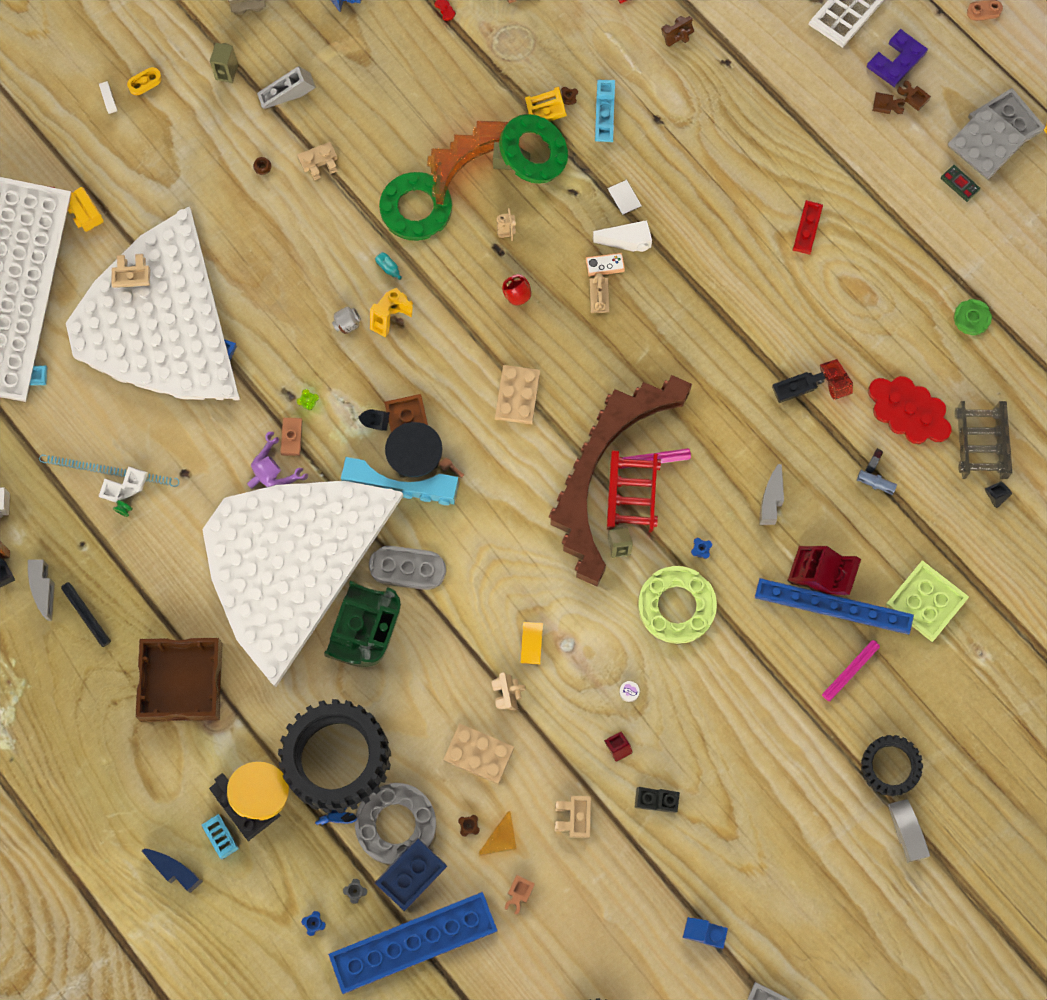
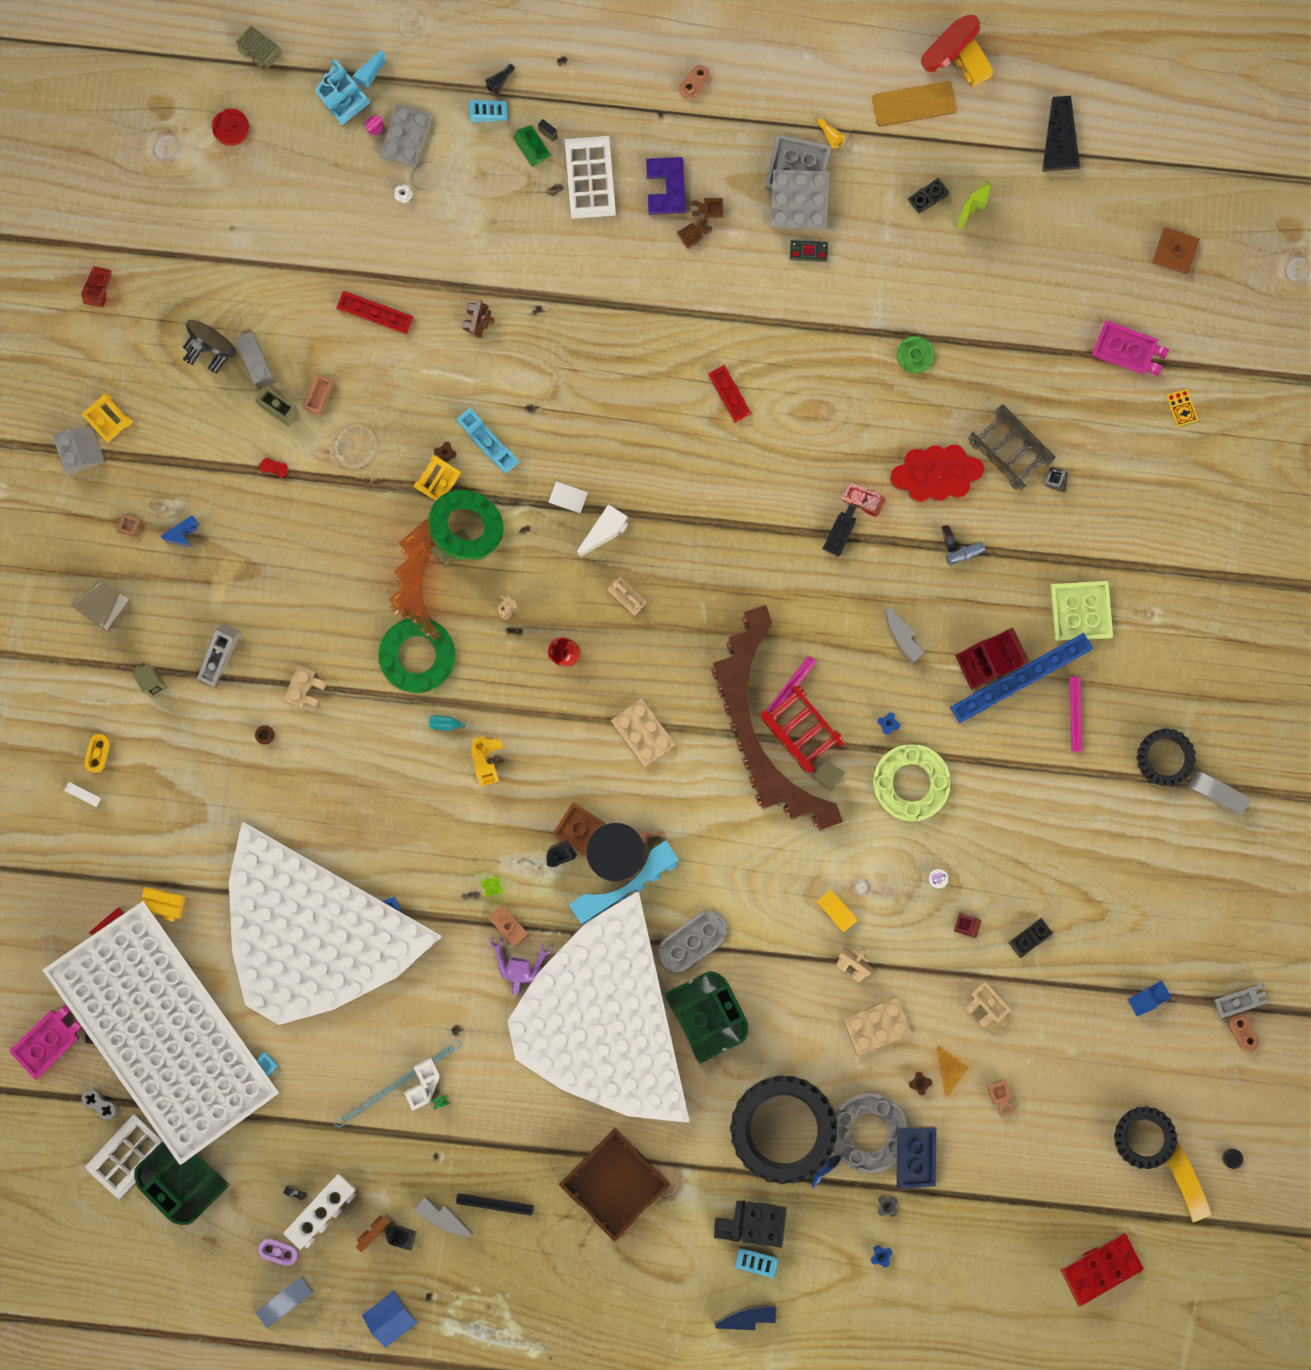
camera: 50 degrees left, 10 degrees up
(130, 276) = (260, 922): tan plate -> none
(257, 790) = (755, 1207): yellow tile -> none
(346, 320) = (458, 797): light grey head -> none
(412, 943) = (962, 1201): blue plate -> none
(605, 264) = (607, 567): tile -> none

